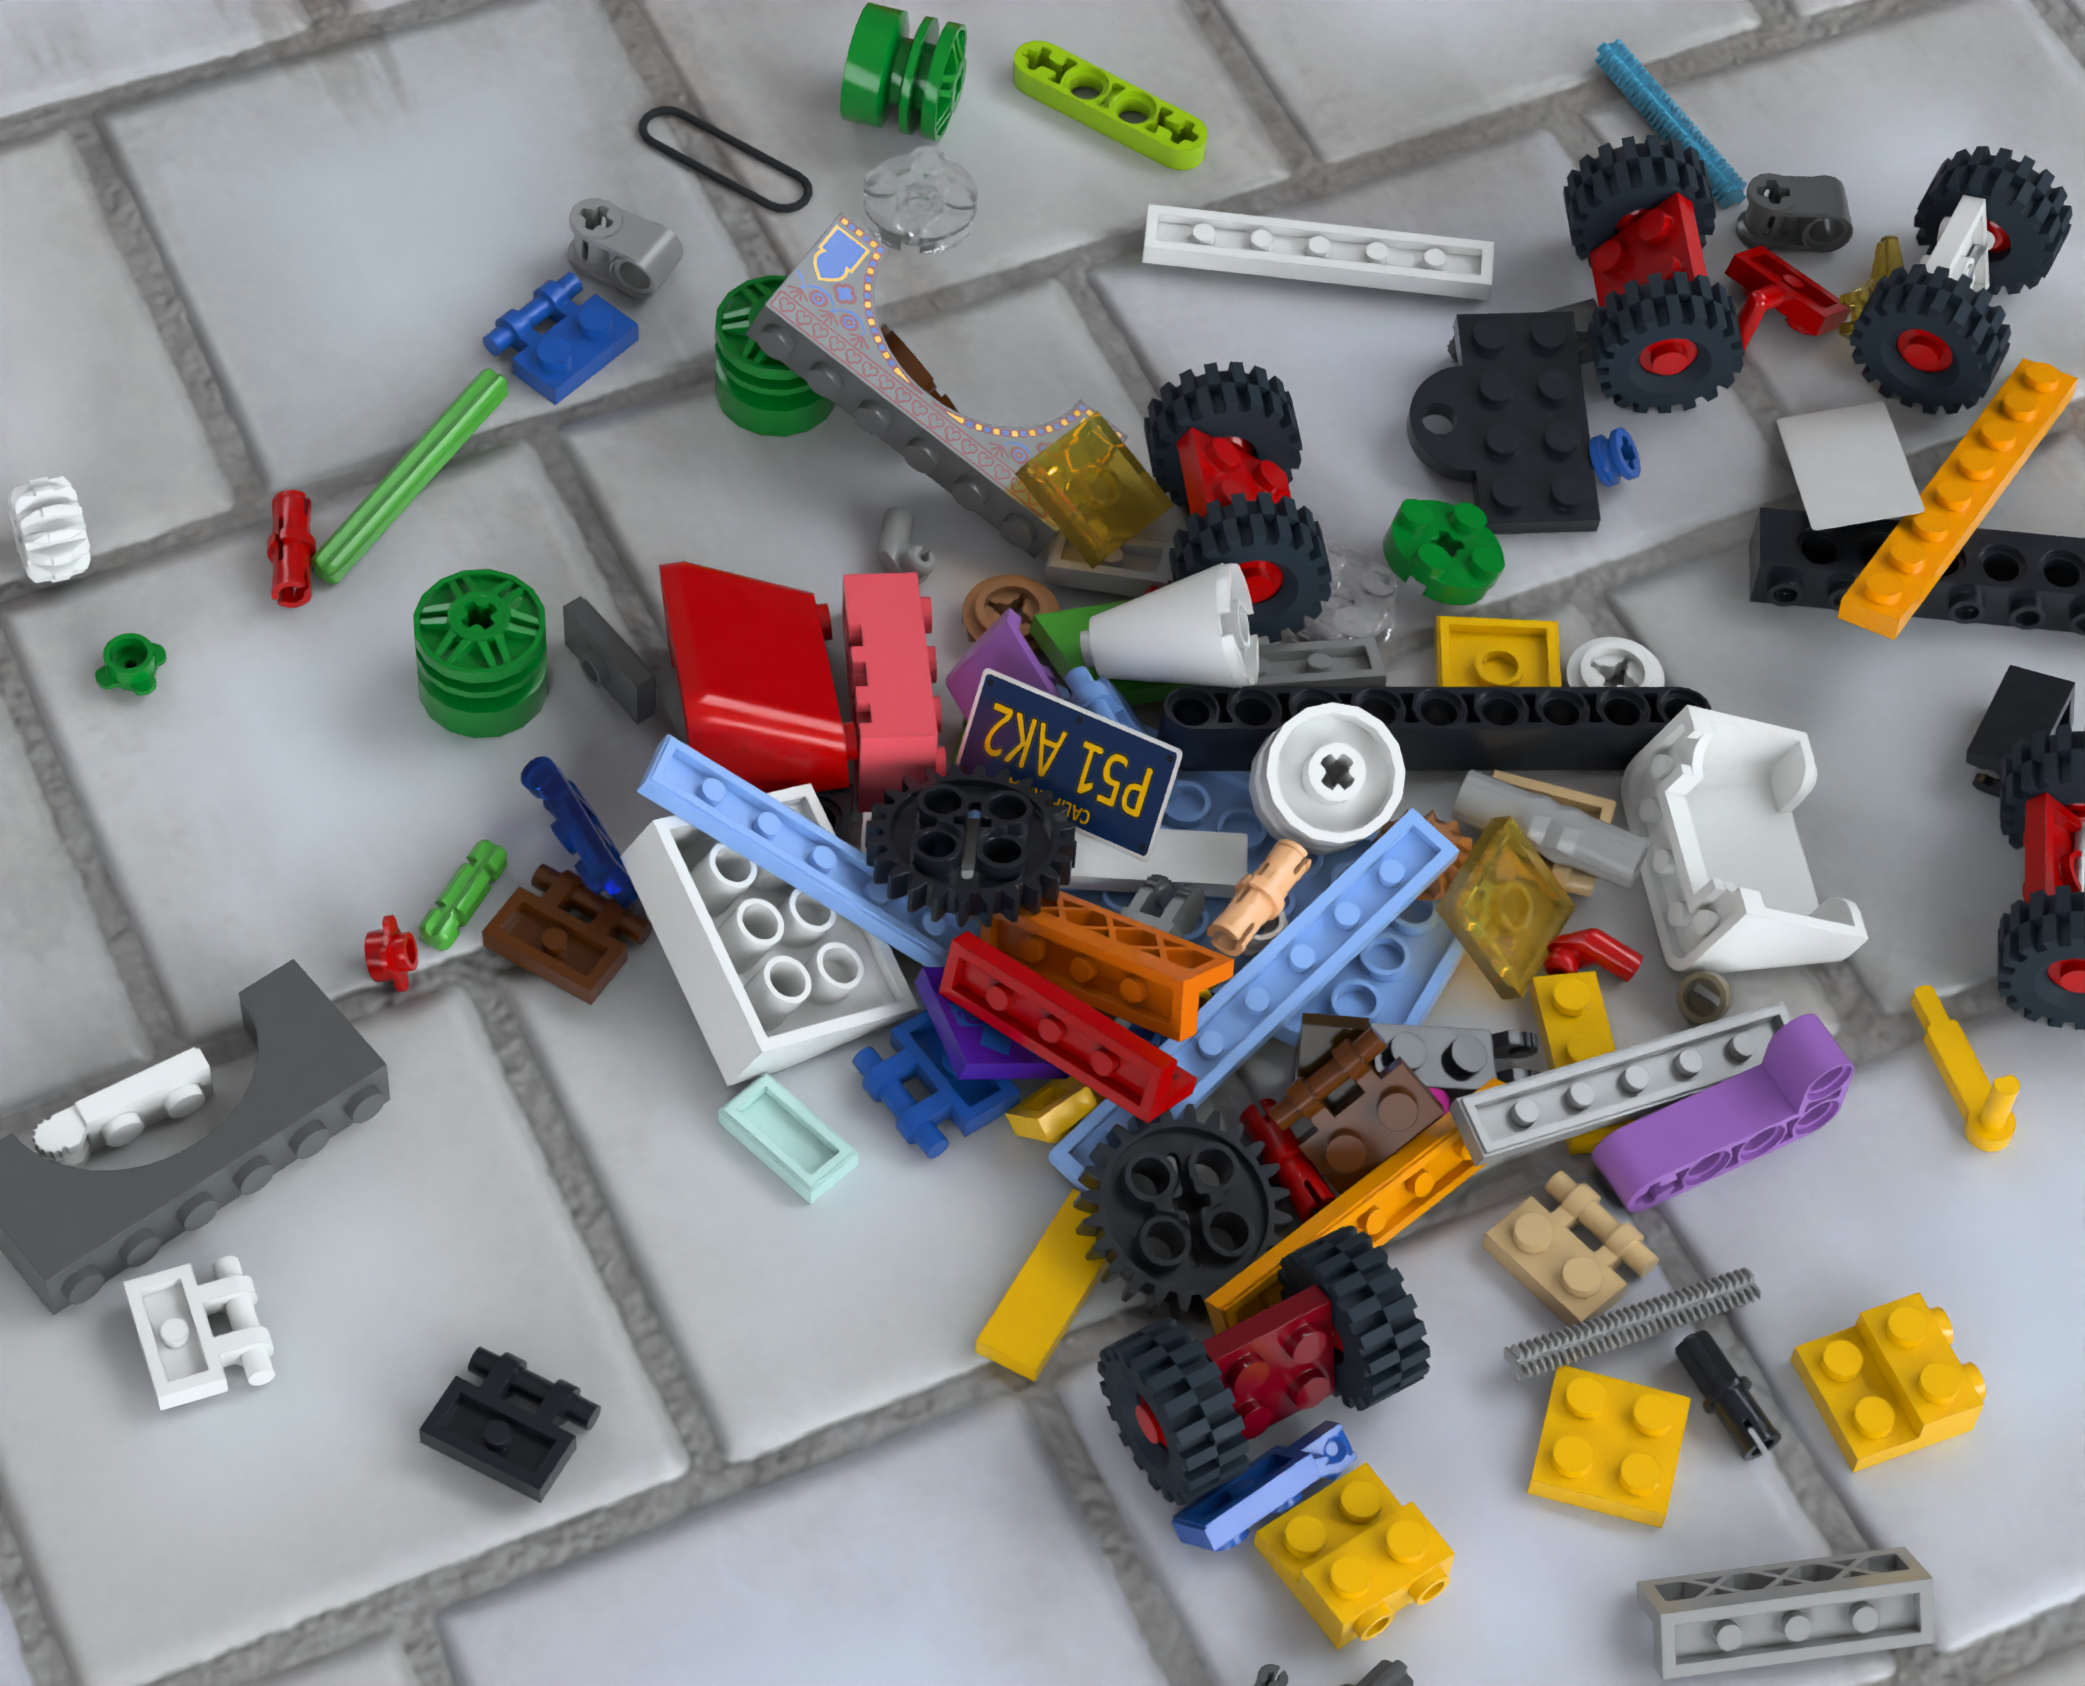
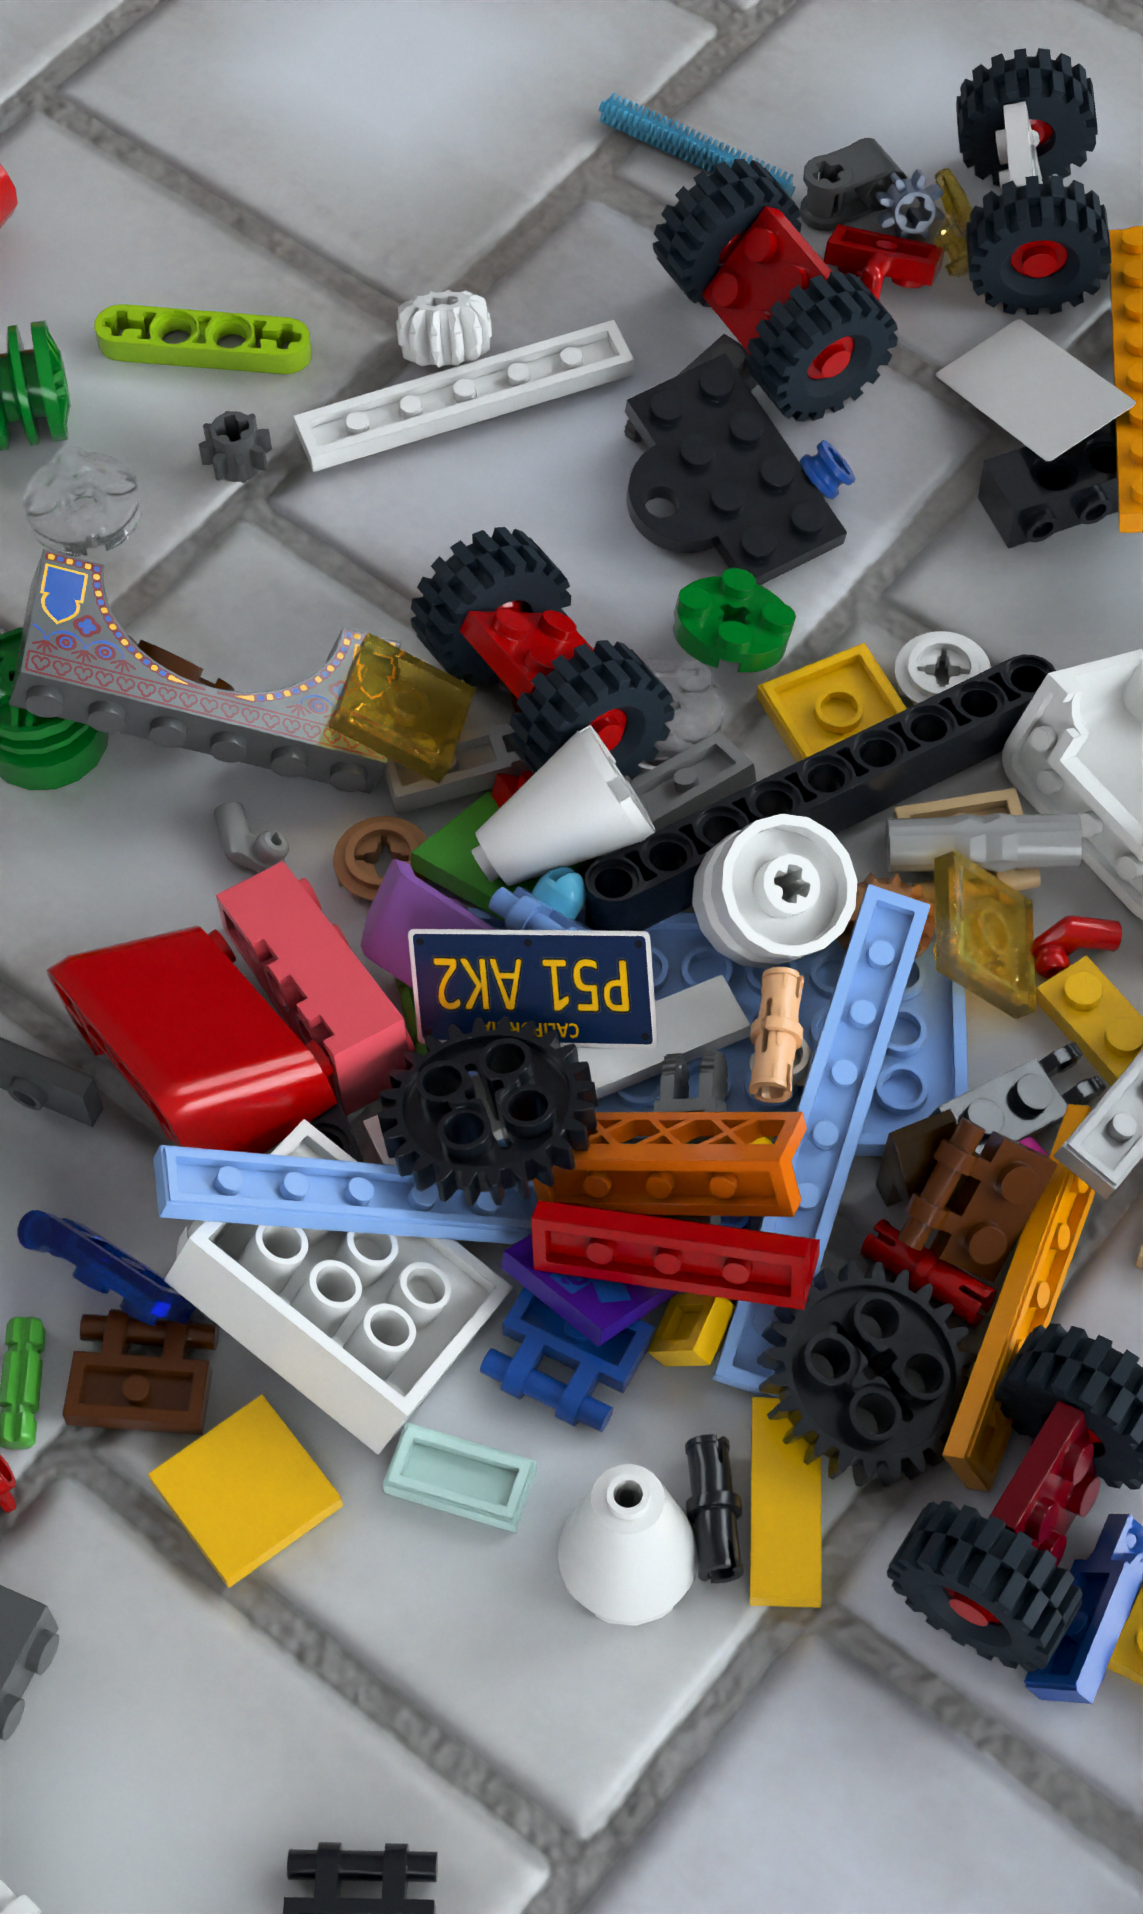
camera: 20 degrees left, 5 degrees up
(602, 1064) = (245, 1490): none -> yellow tile
(895, 1246) = (628, 1548): none -> white cone
(986, 1258) = (714, 1509): none -> black pin
(1081, 209) = (235, 446): none -> dark grey gear
(1142, 700) = (562, 891): none -> medium azure hinge
(1330, 184) = (444, 328): none -> white gear
(1832, 242) = (903, 192): none -> sand blue gear

